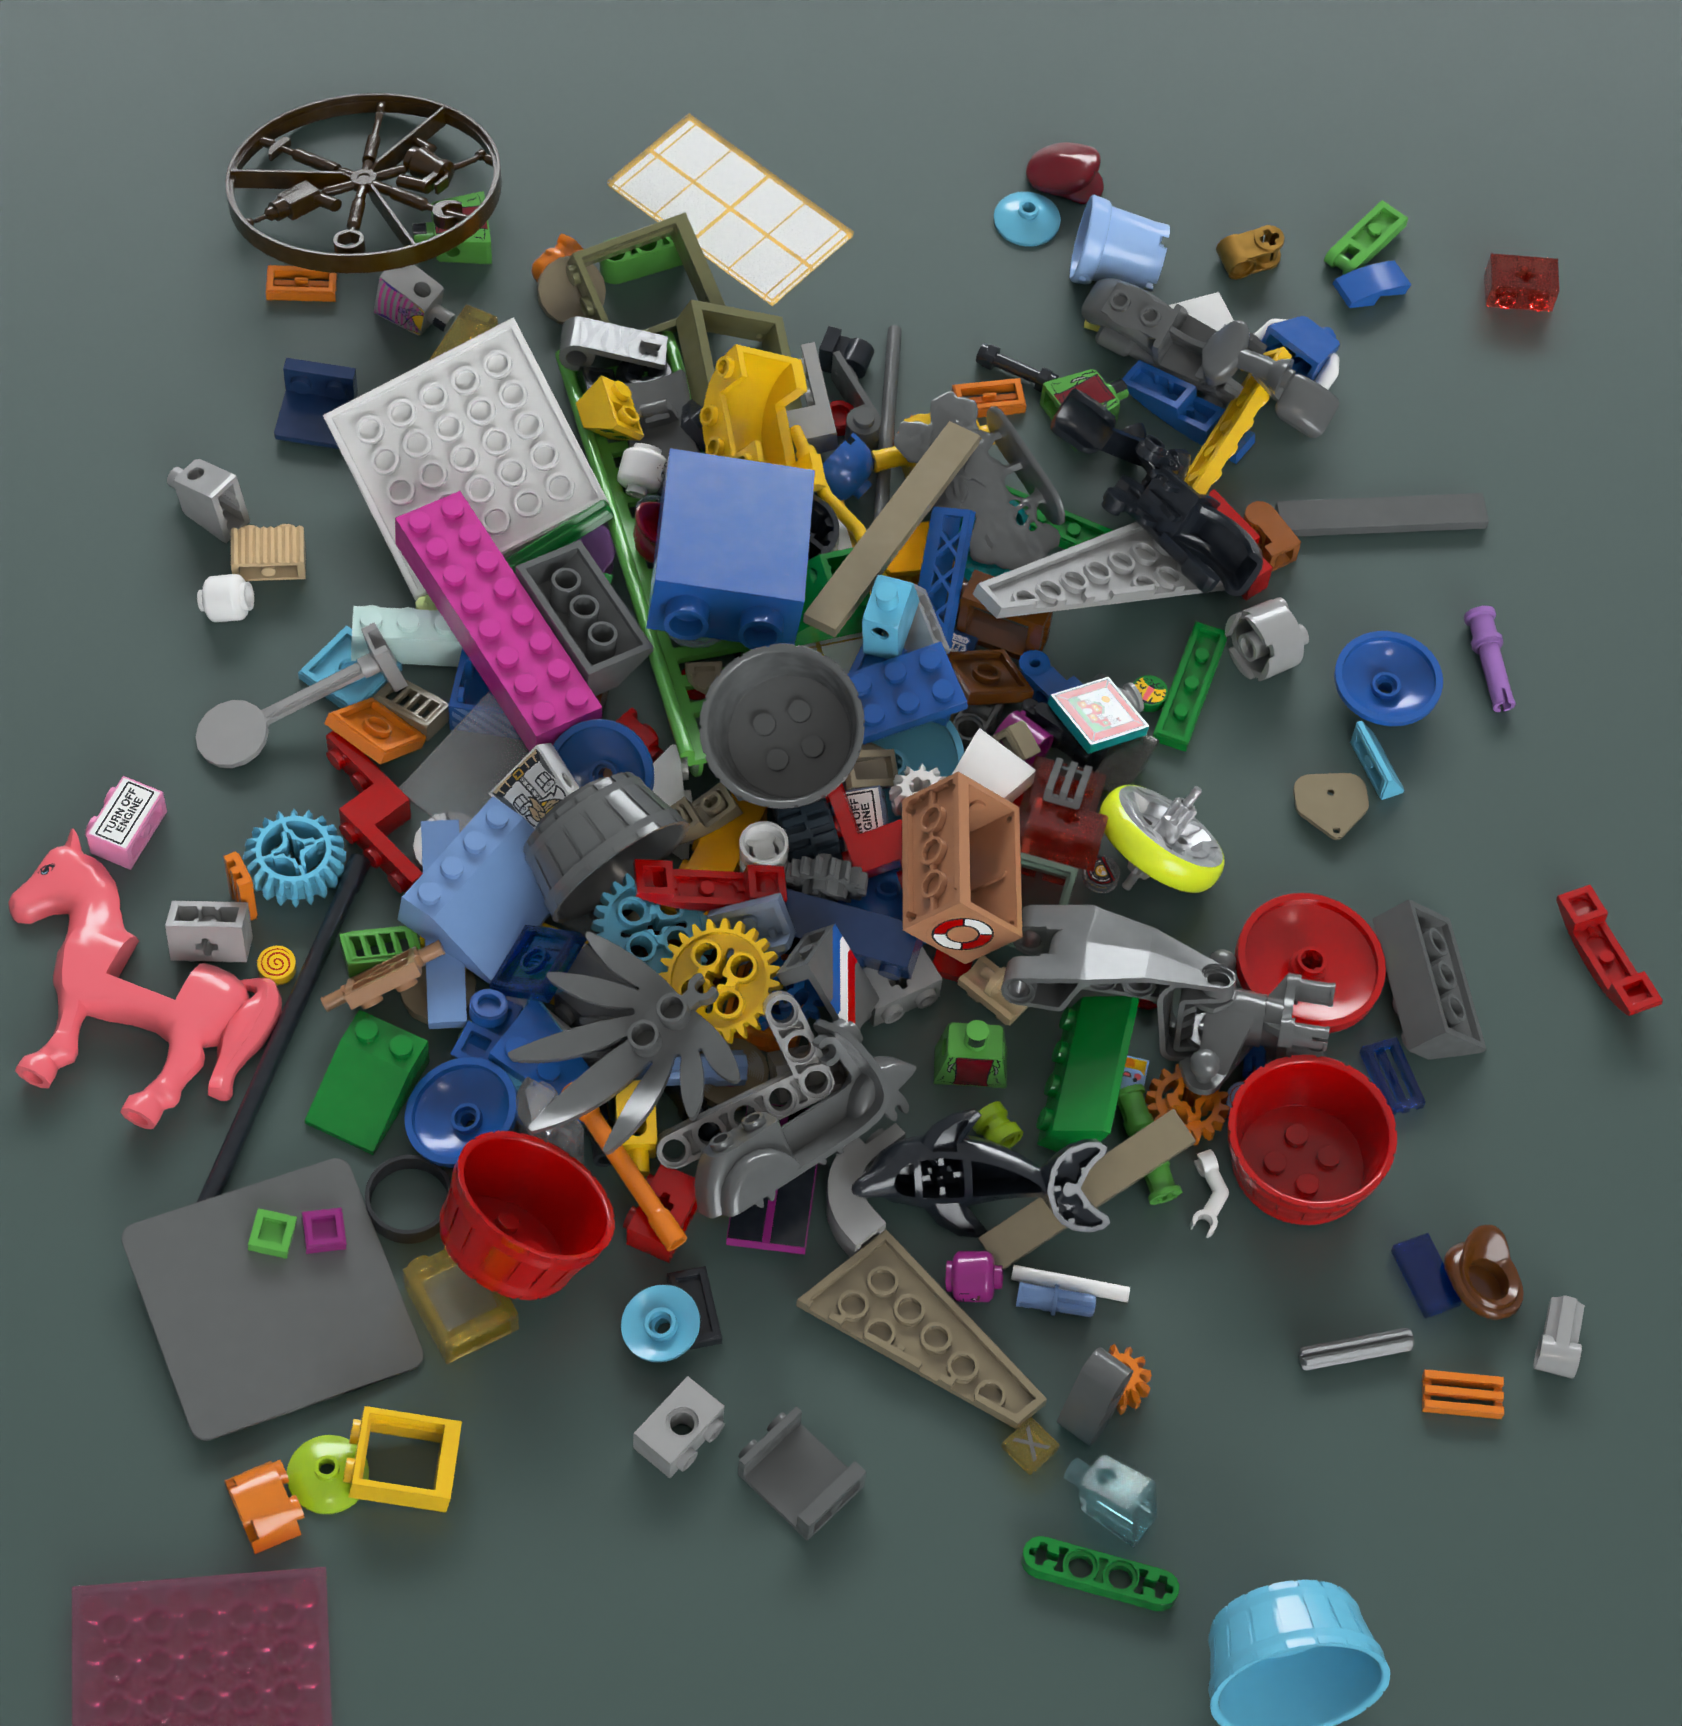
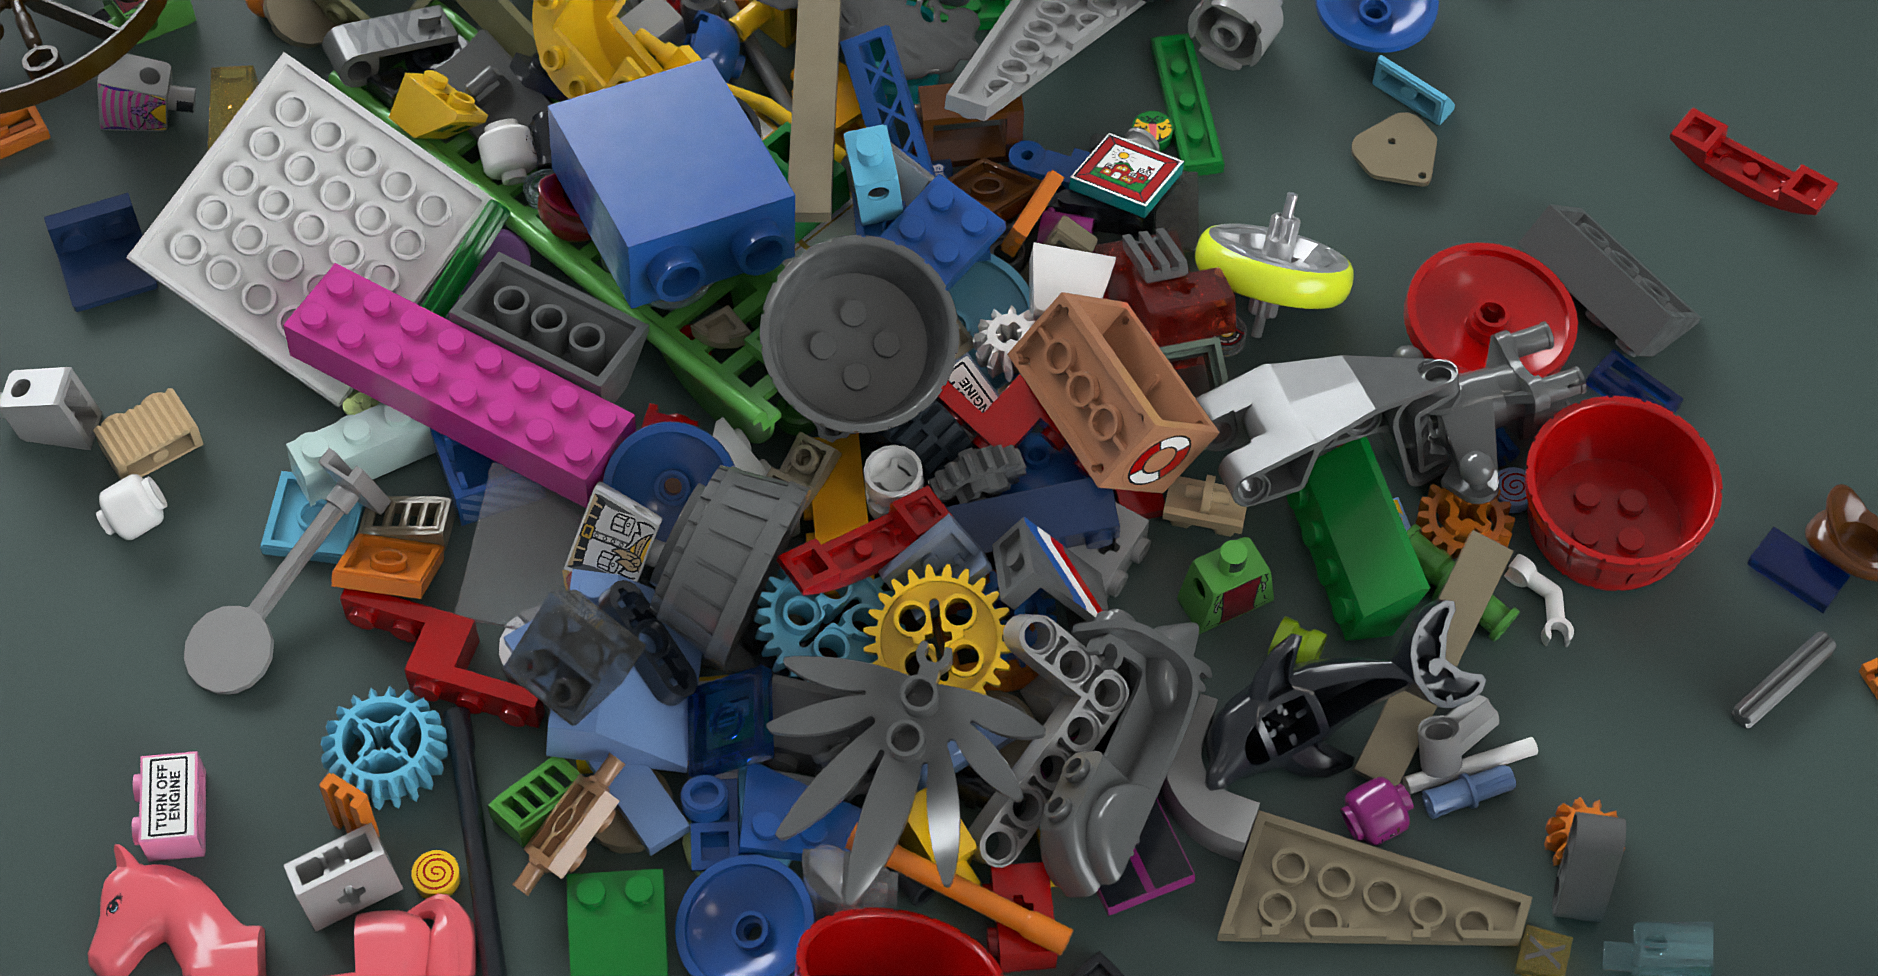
camera: 25 degrees left, 0 degrees up
(447, 854) = (573, 655): none -> clear smoke slope
(502, 888) = (675, 664): none -> black beam
(1002, 707) = (1031, 212): none -> orange tile
(1058, 1252) = (1449, 736): none -> light grey piece

